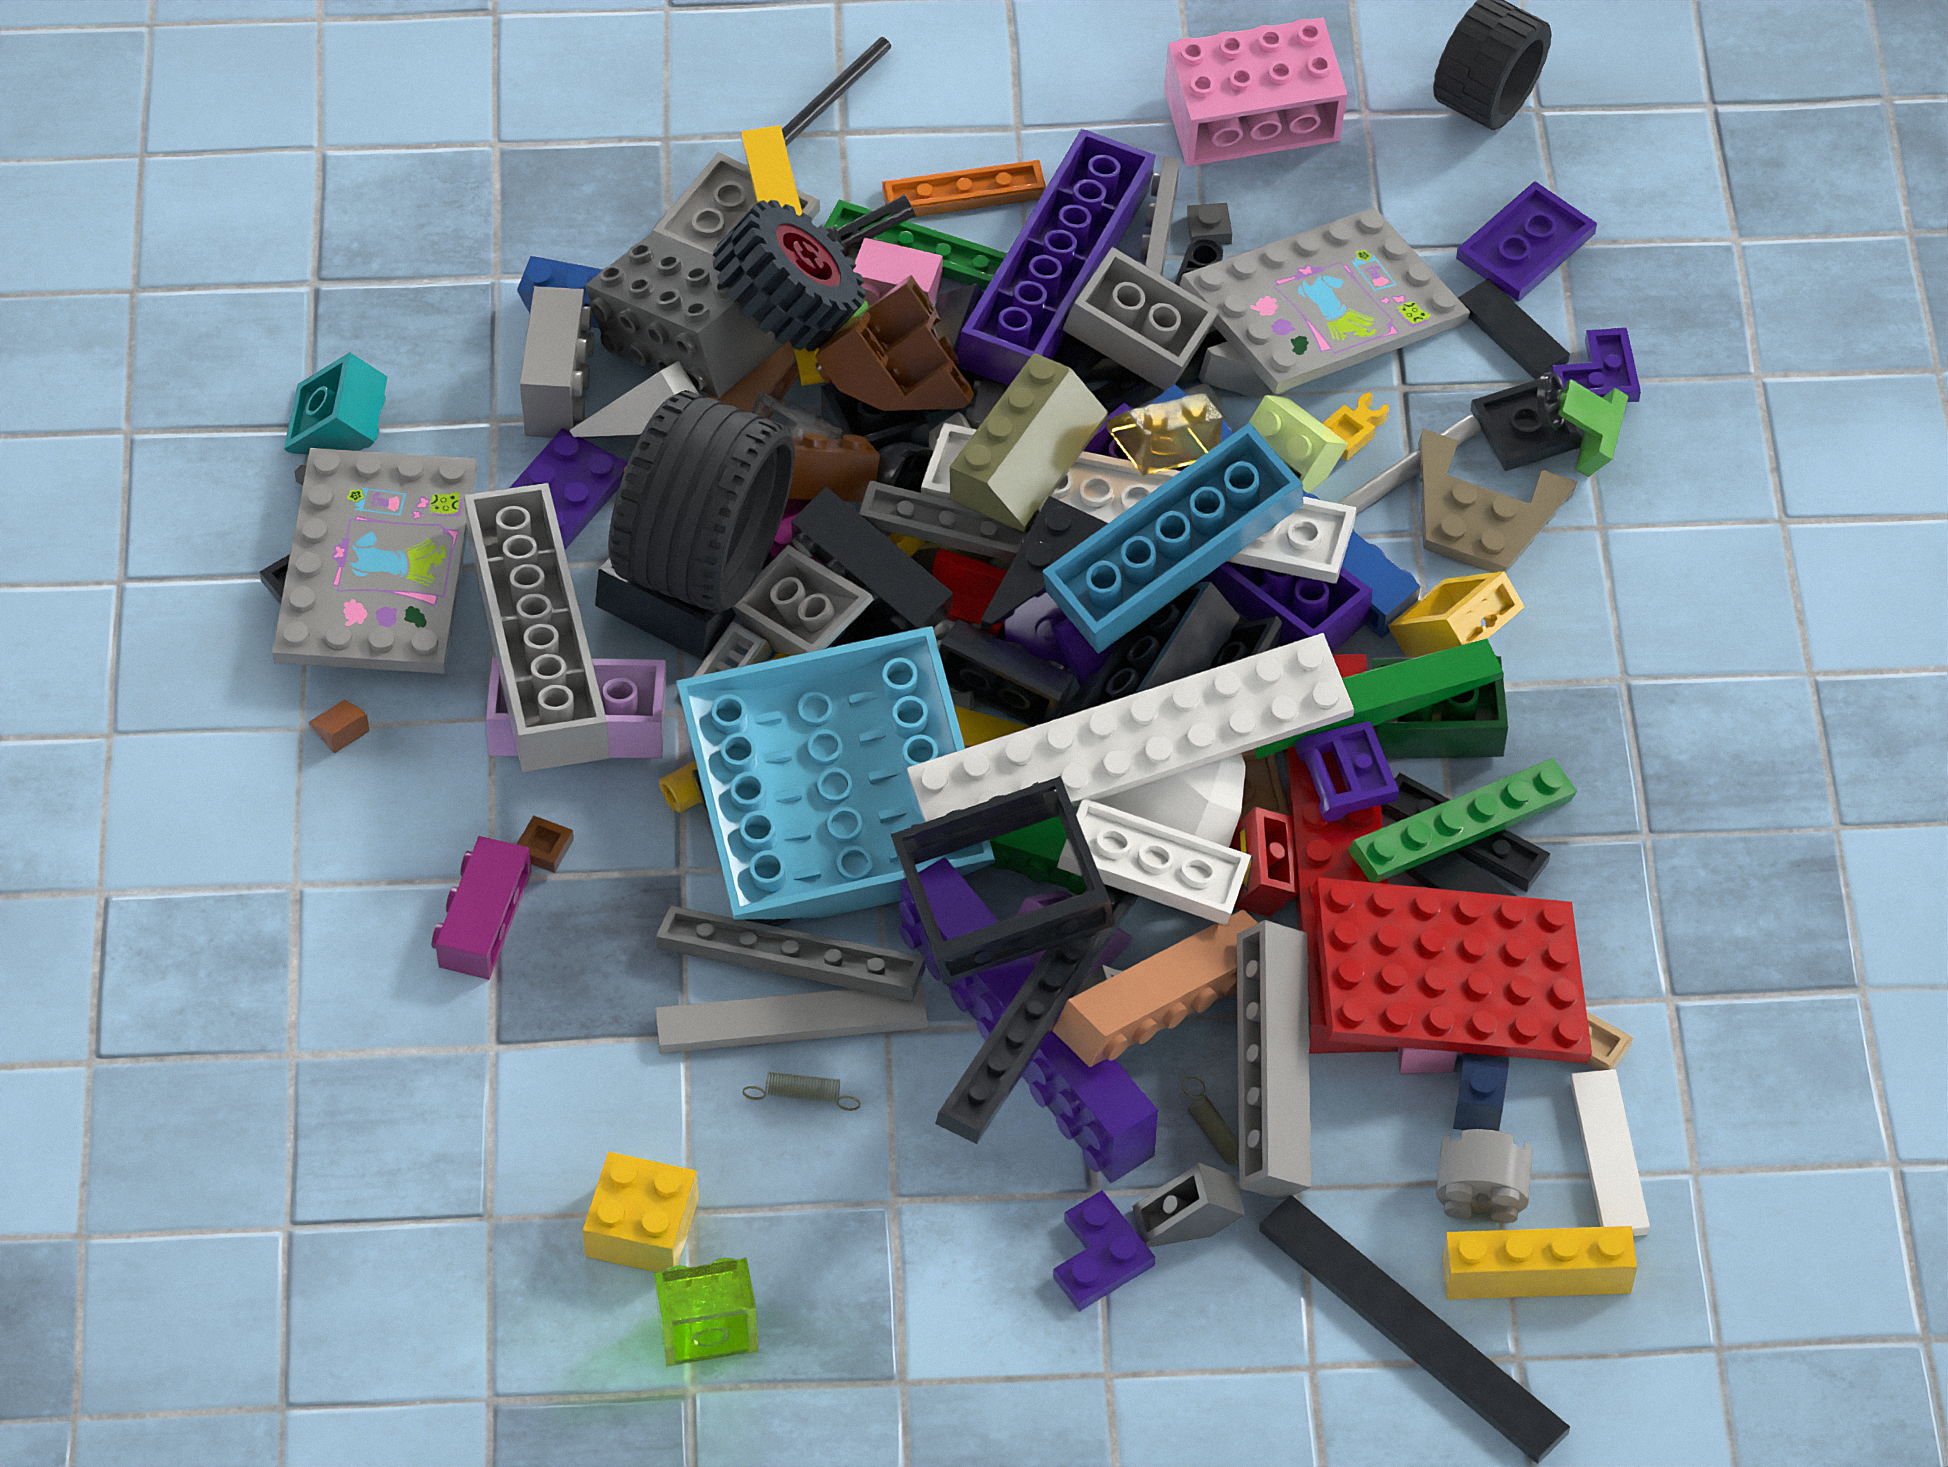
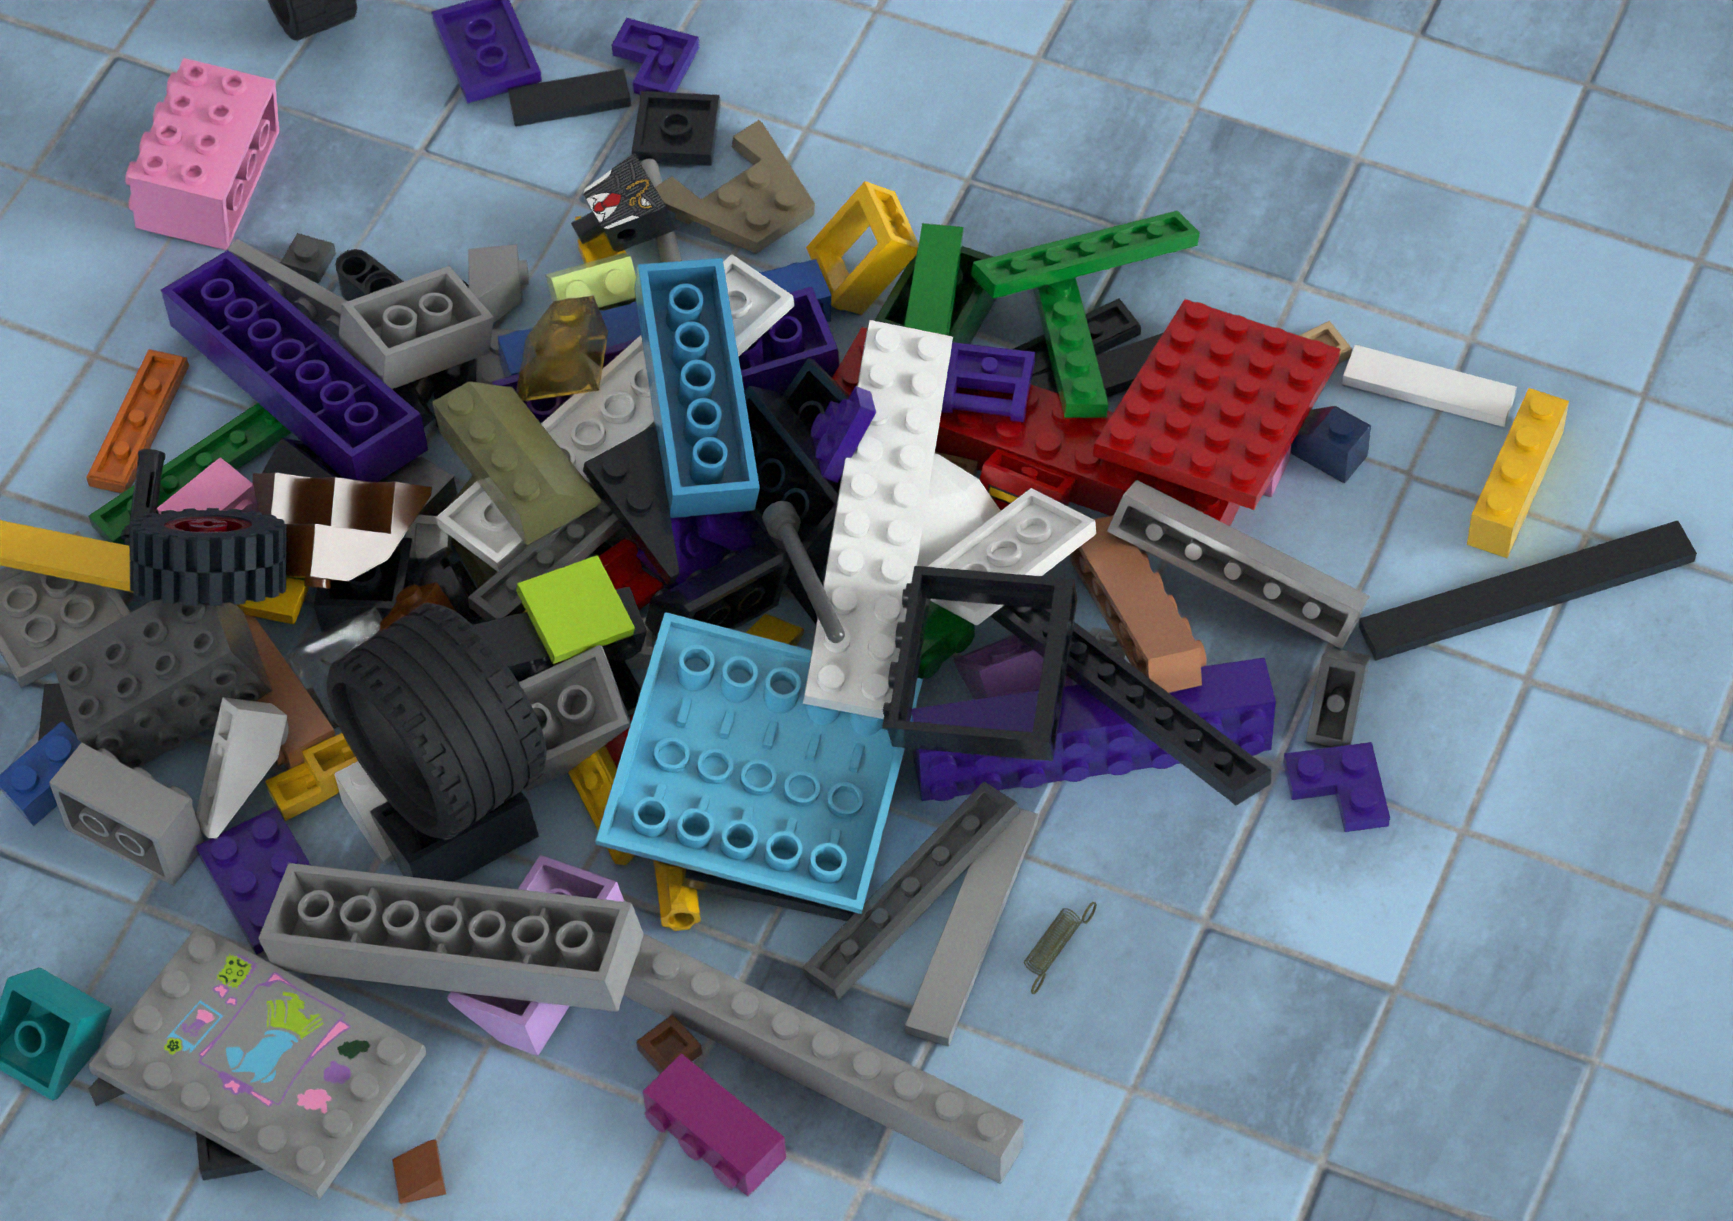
camera: 60 degrees left, 0 degrees up
(587, 952) = (826, 1059): none -> light grey brick
(640, 1213) = (1128, 1121): yellow brick -> none
(706, 1311) = (1268, 1102): clear neon green brick -> none
(726, 647) = (545, 788): white slope -> none
(896, 560) = (575, 609): none -> lime tile
(1090, 679) = (783, 524): none -> dark grey piece
(1199, 663) = (841, 430): none -> dark purple plate
(1217, 1115) = (1274, 640): olive piece -> none
(1325, 299) = (461, 201): light grey plate -> none
(1388, 416) = (624, 208): none -> torso
(1484, 1175) = (1422, 469): light grey brick -> none
(1566, 796) = (1084, 254): none -> green plate
(1595, 415) = (715, 75): bright green piece -> none

